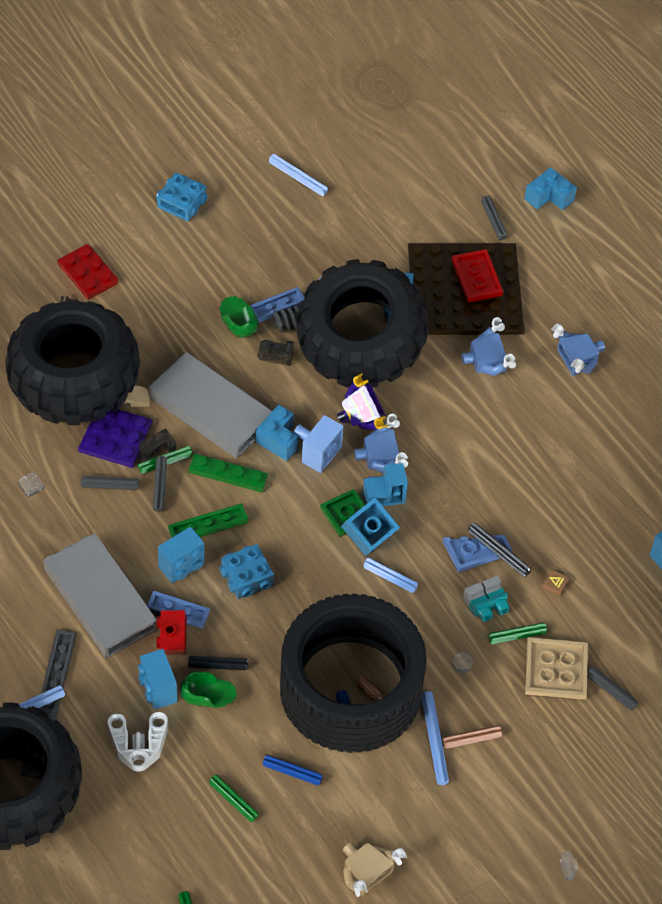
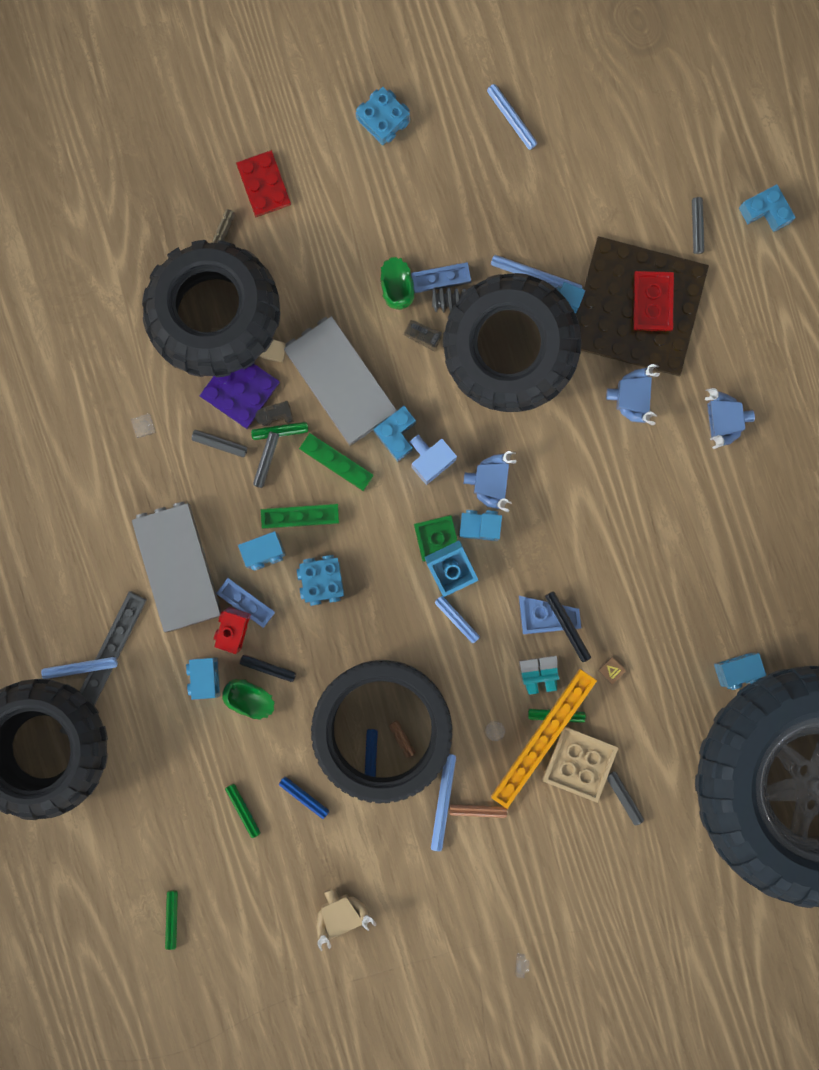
camera: 20 degrees right, 30 degrees up
(119, 739) = (155, 729): white connector -> none
(362, 406) = (487, 432): torso -> none
(512, 652) = (543, 738): none -> light orange plate

